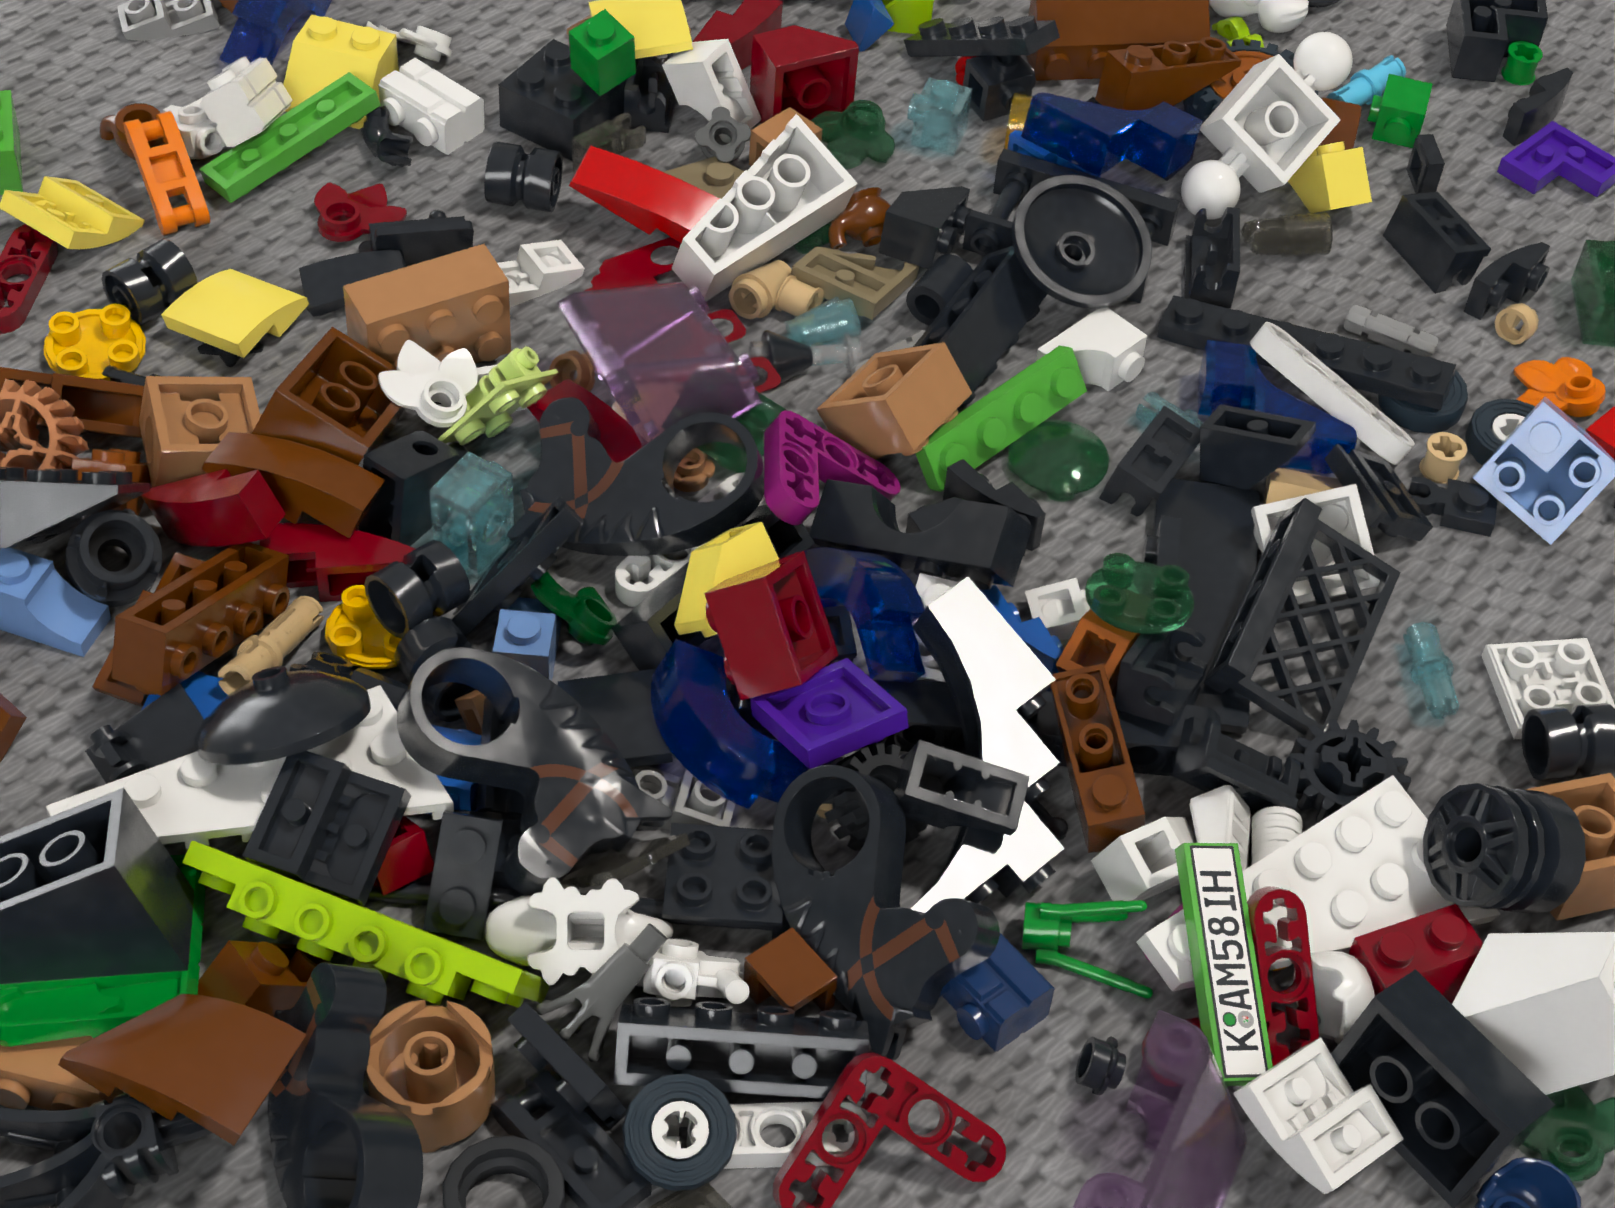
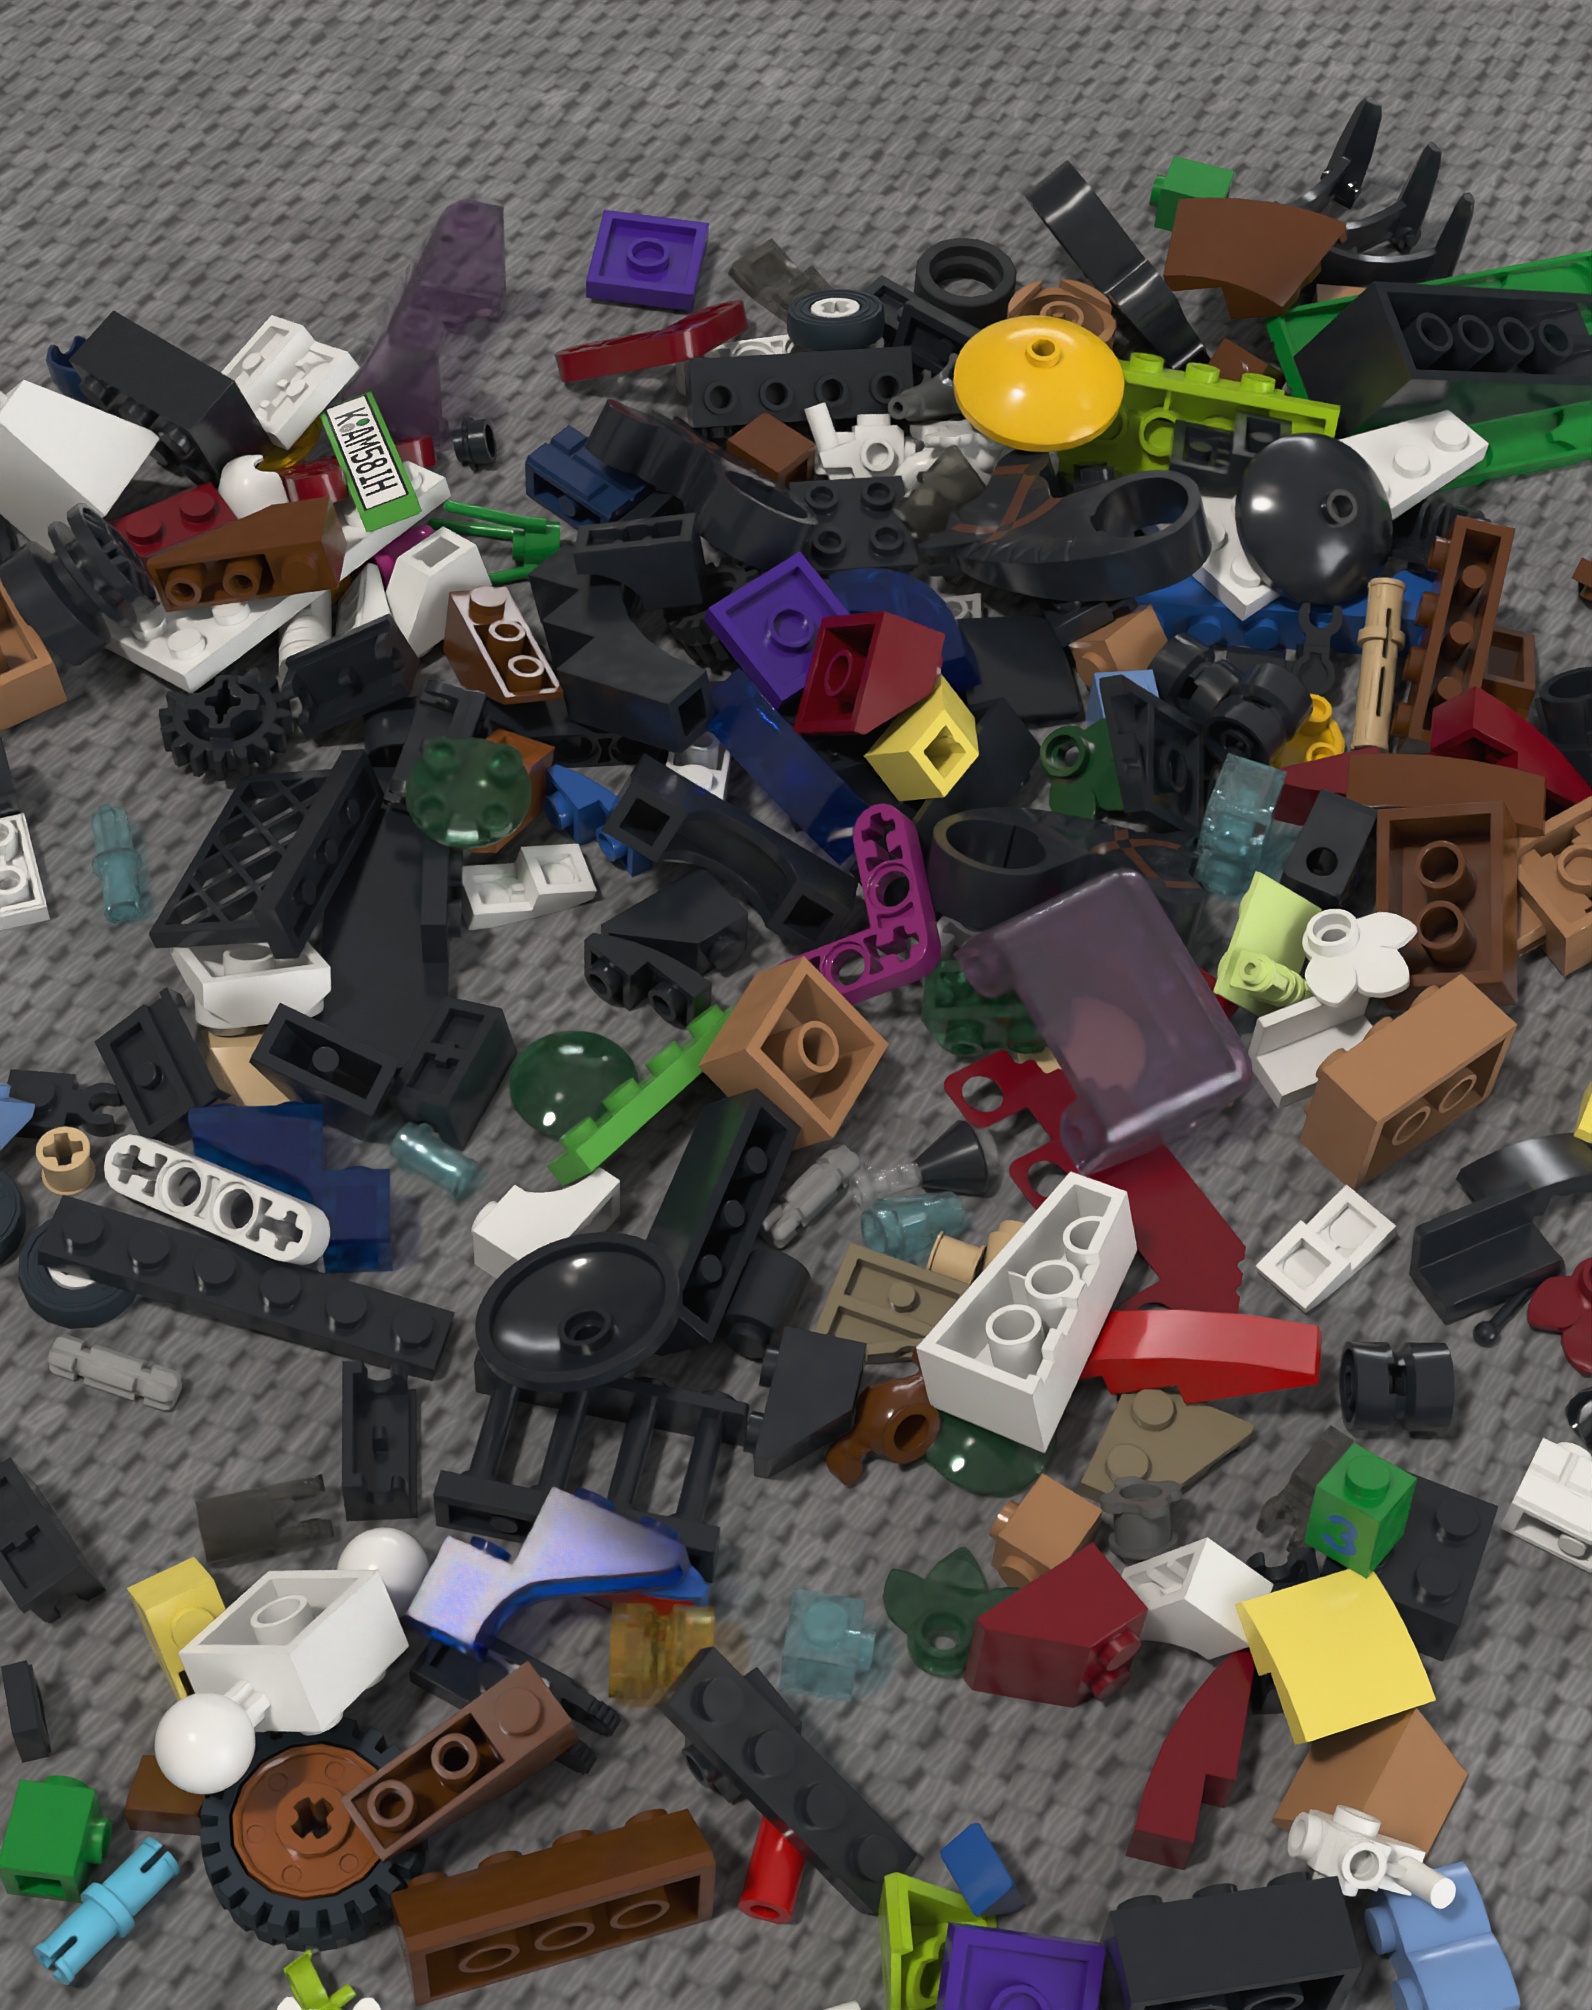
camera: 170 degrees right, 5 degrees up
(498, 938) = (1038, 383): none -> yellow dish
(1323, 833) = (260, 556): none -> reddish brown slope

